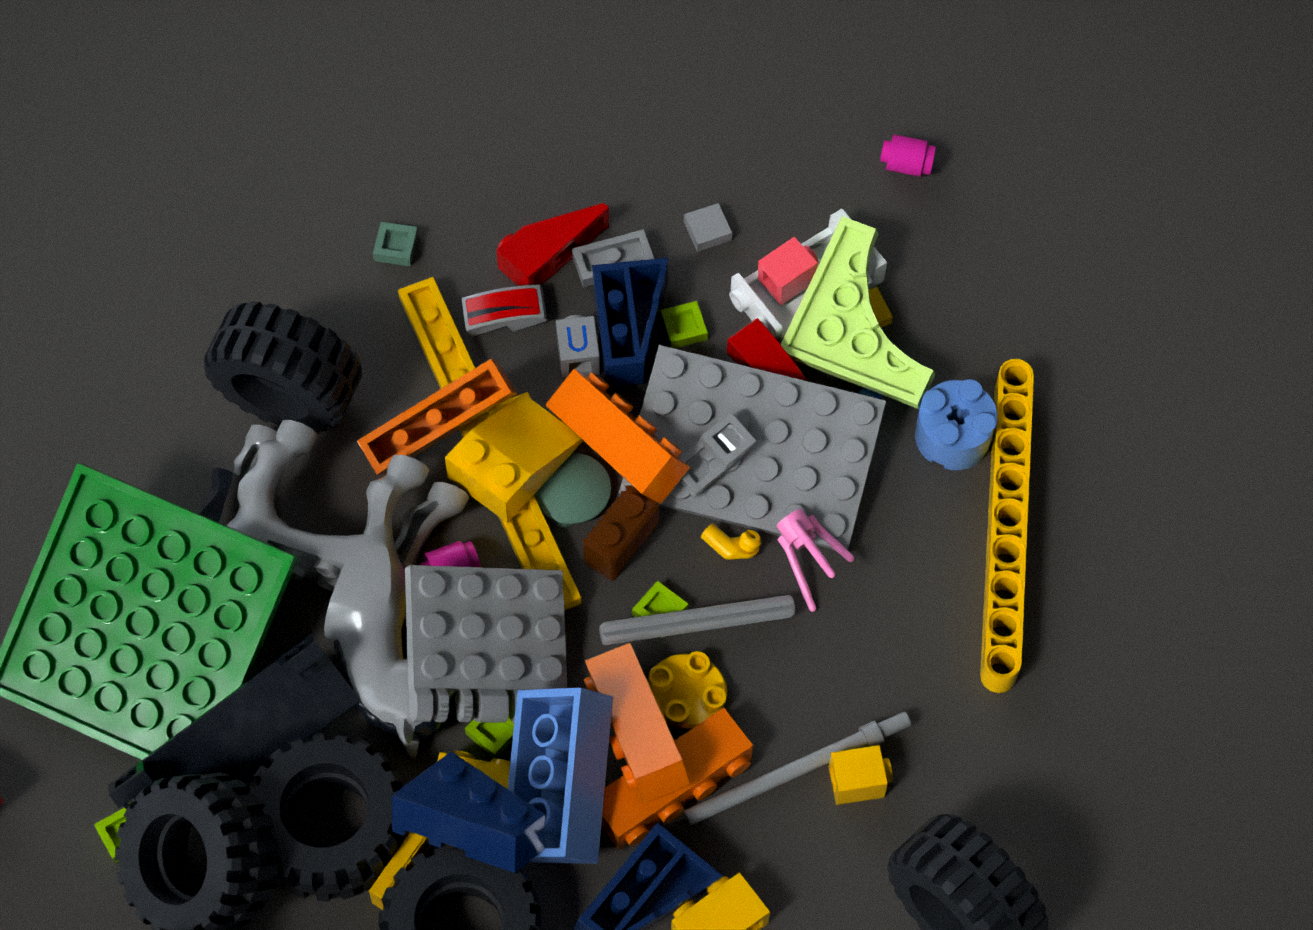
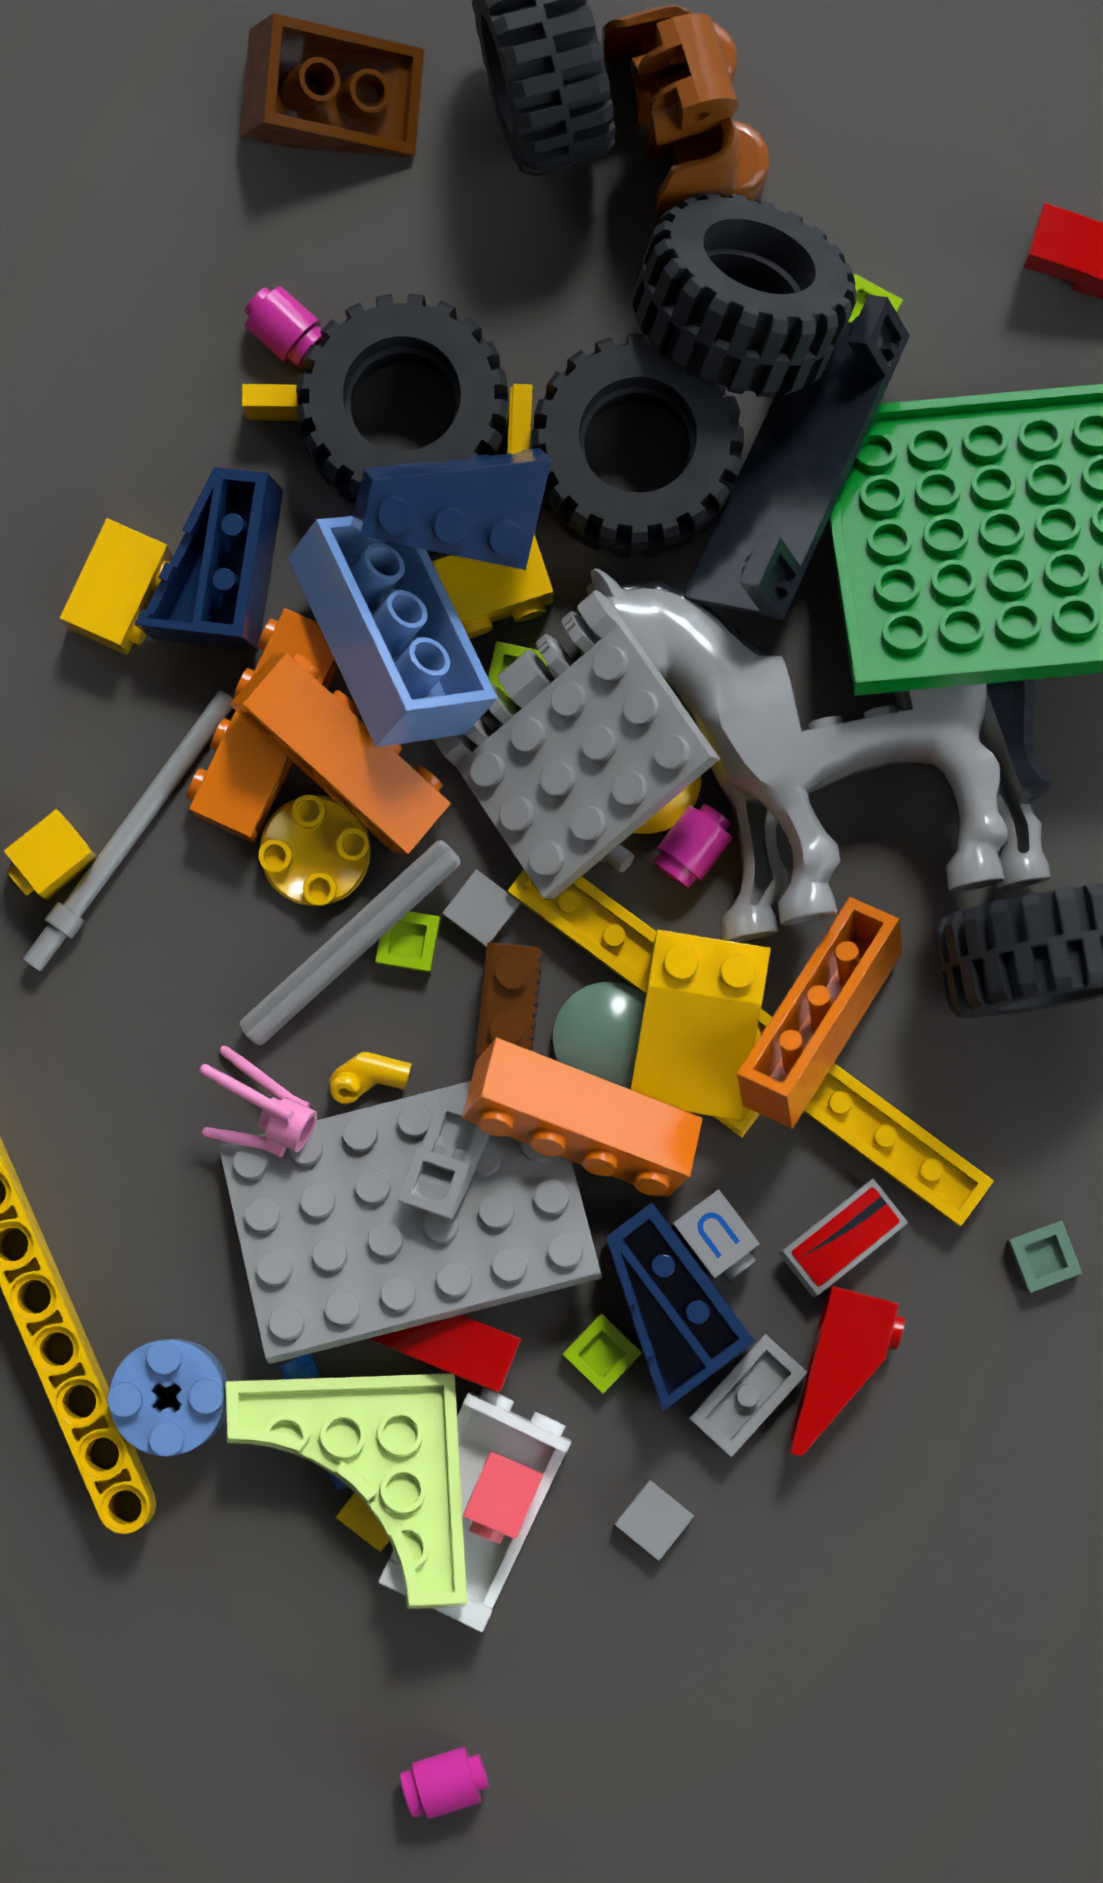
camera: 150 degrees right, 20 degrees up
(603, 602) = (481, 908): none -> light grey tile

